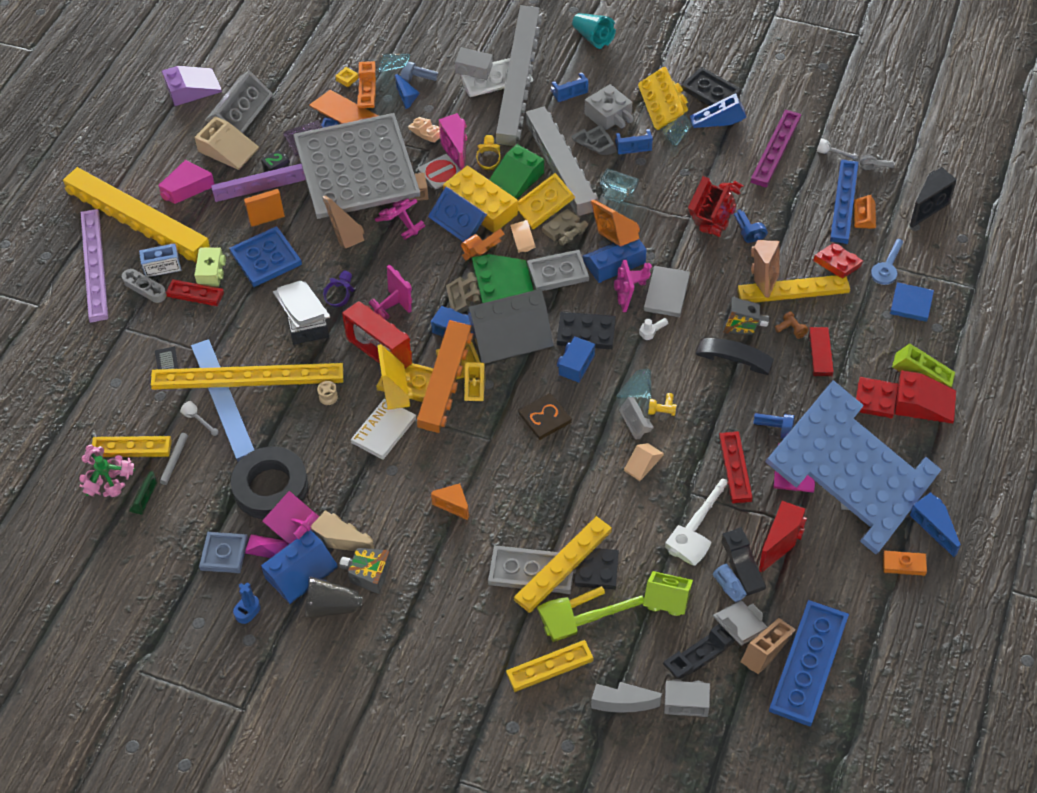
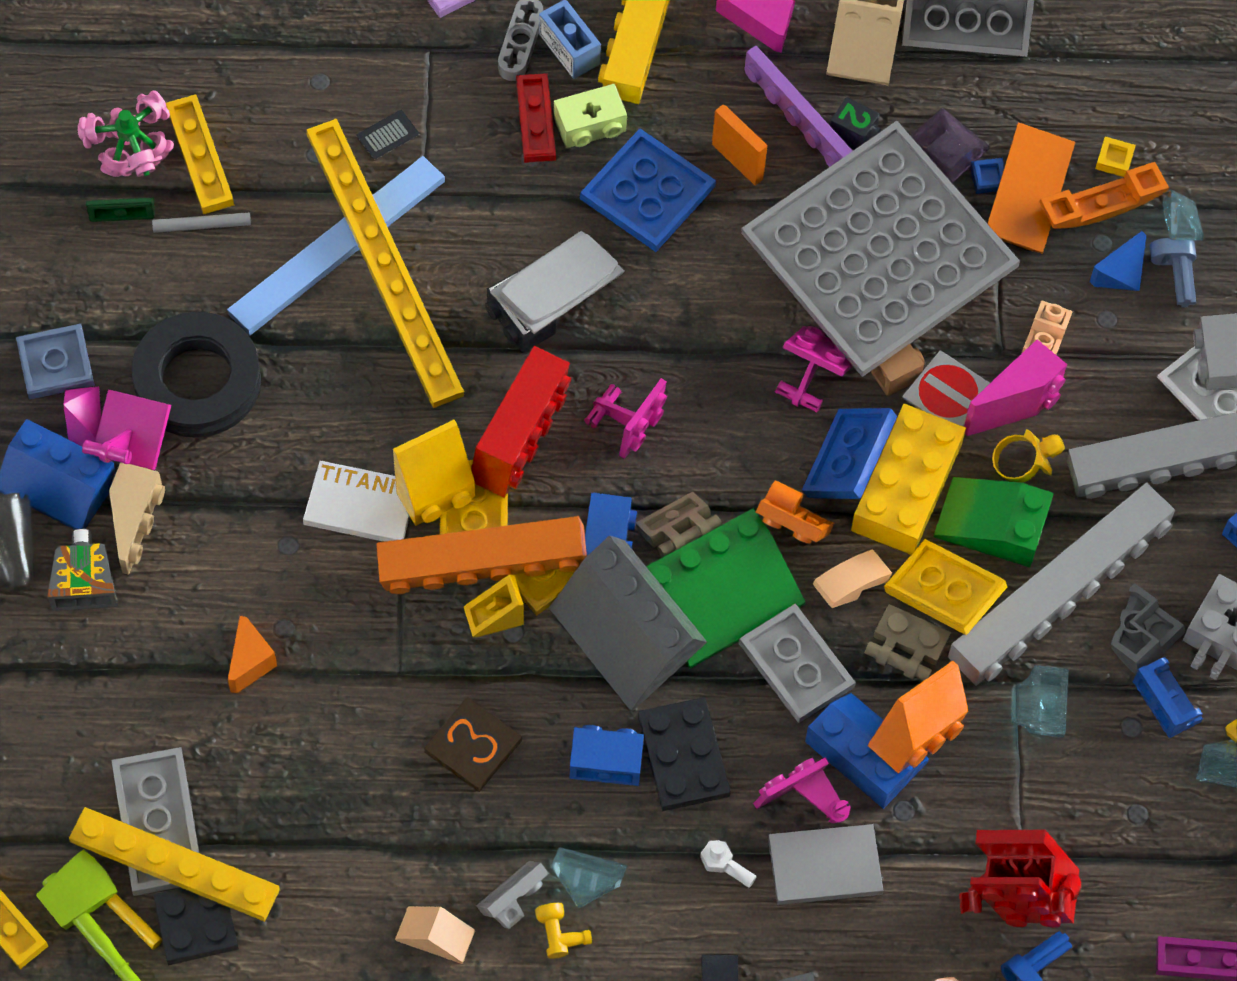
camera: 65 degrees right, 10 degrees up
(190, 410) = (295, 207): hinge -> none
(326, 388) = (393, 386): tan wheel -> none
(345, 228) = (746, 278): medium nougat slope -> none
(345, 277) = (633, 330): dark purple piece -> none

